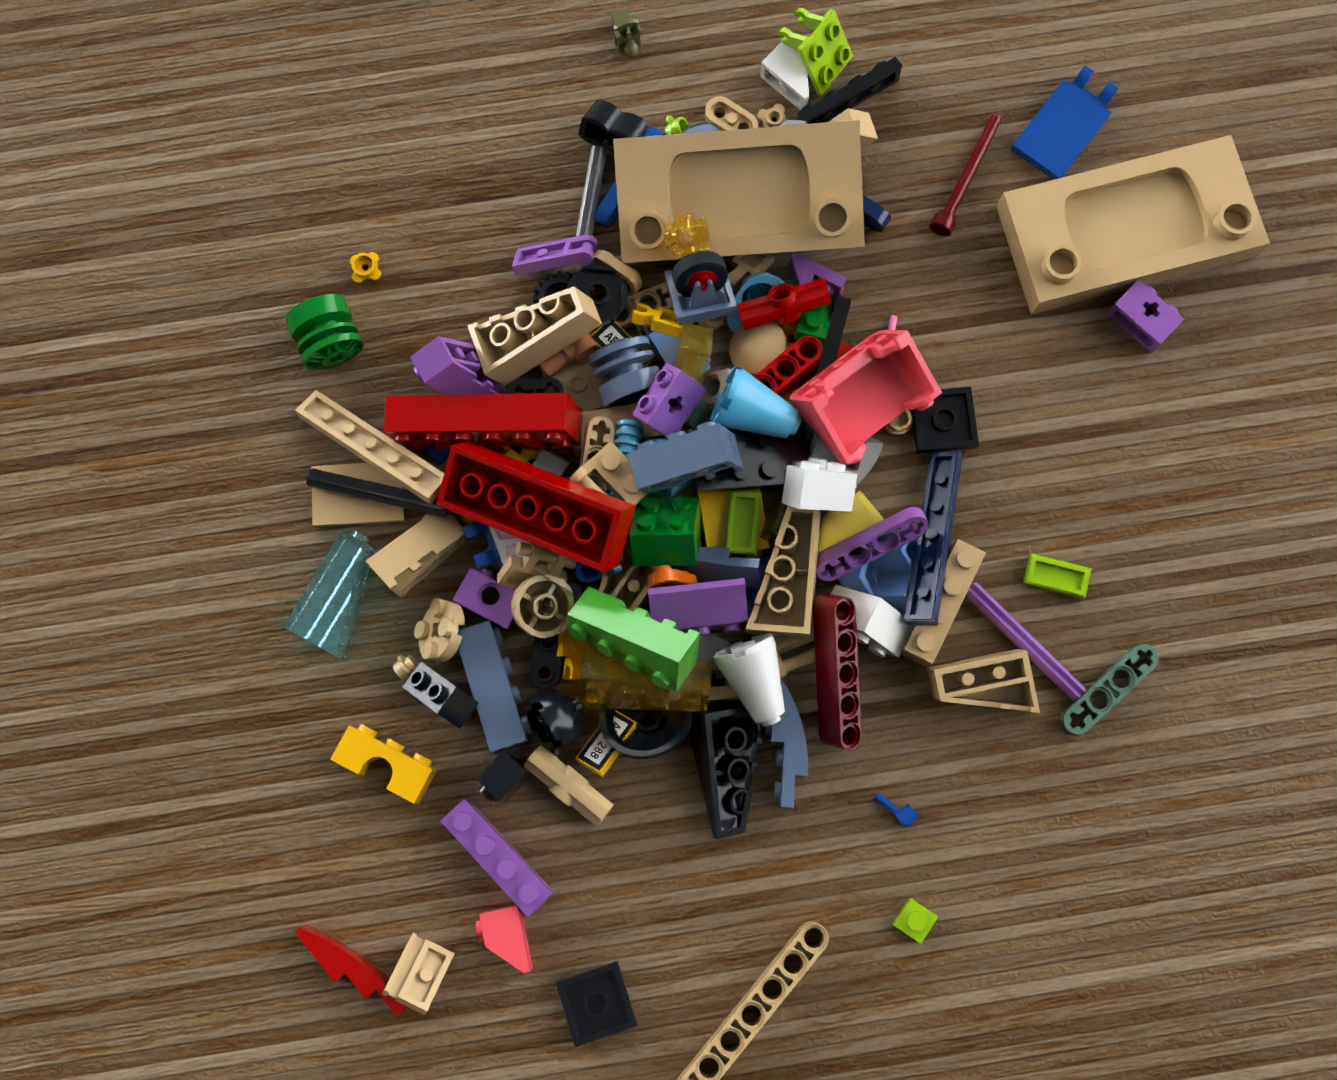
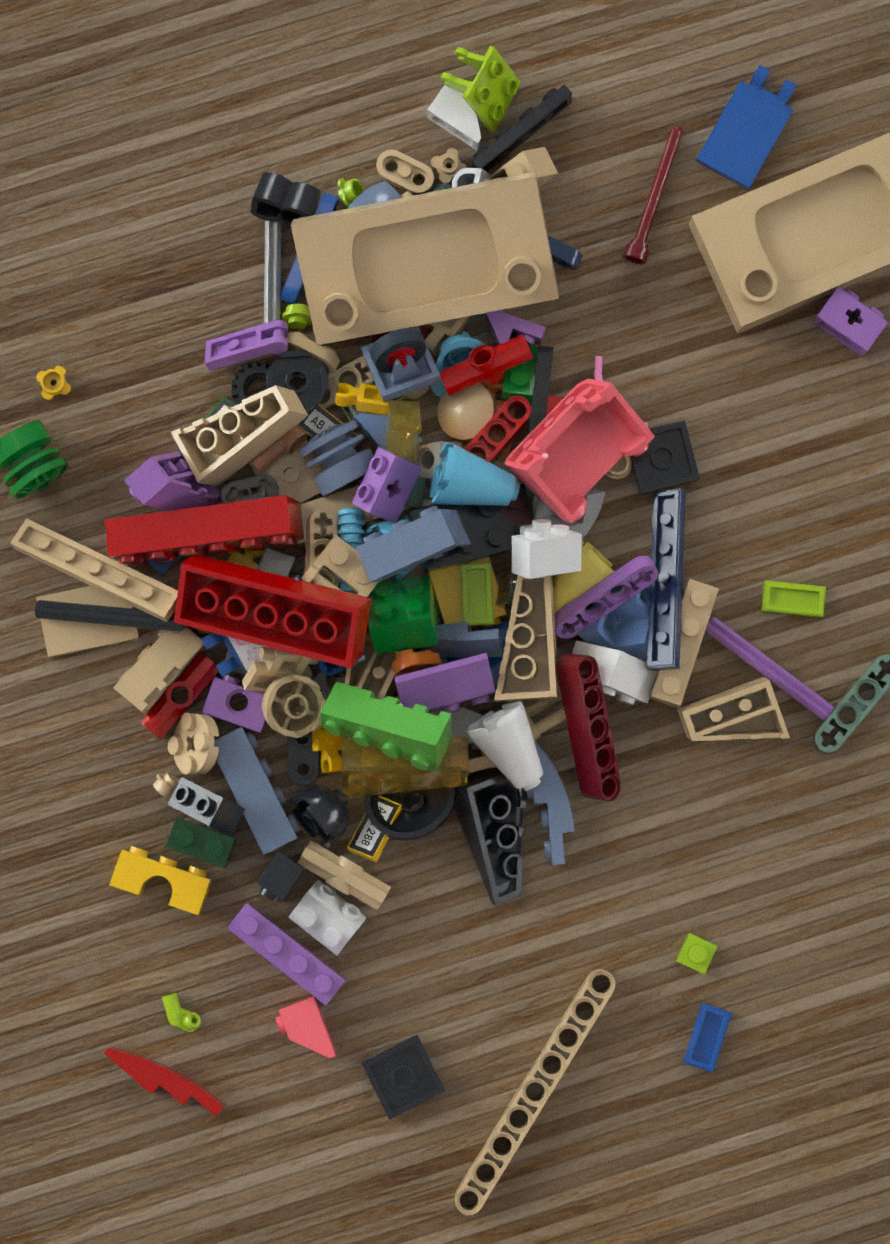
camera: 15 degrees left, 5 degrees up
(333, 597) = (81, 728): clear light blue slope -> none
(380, 905) = (178, 1016): none -> lime arm
(418, 974) = (229, 1074): tan plate -> none
(419, 595) = (166, 711): none -> red piece
(430, 731) = (201, 842): none -> dark green brick
(545, 825) = (327, 917): none -> white bracket
(608, 237) = (297, 316): none -> lime plate
(626, 32) = (282, 93): olive piece -> none
(699, 235) = (386, 305): clear yellow brick -> none
(905, 816) = (673, 856): blue hand -> none
(915, 1010) = (707, 1037): none -> blue tile

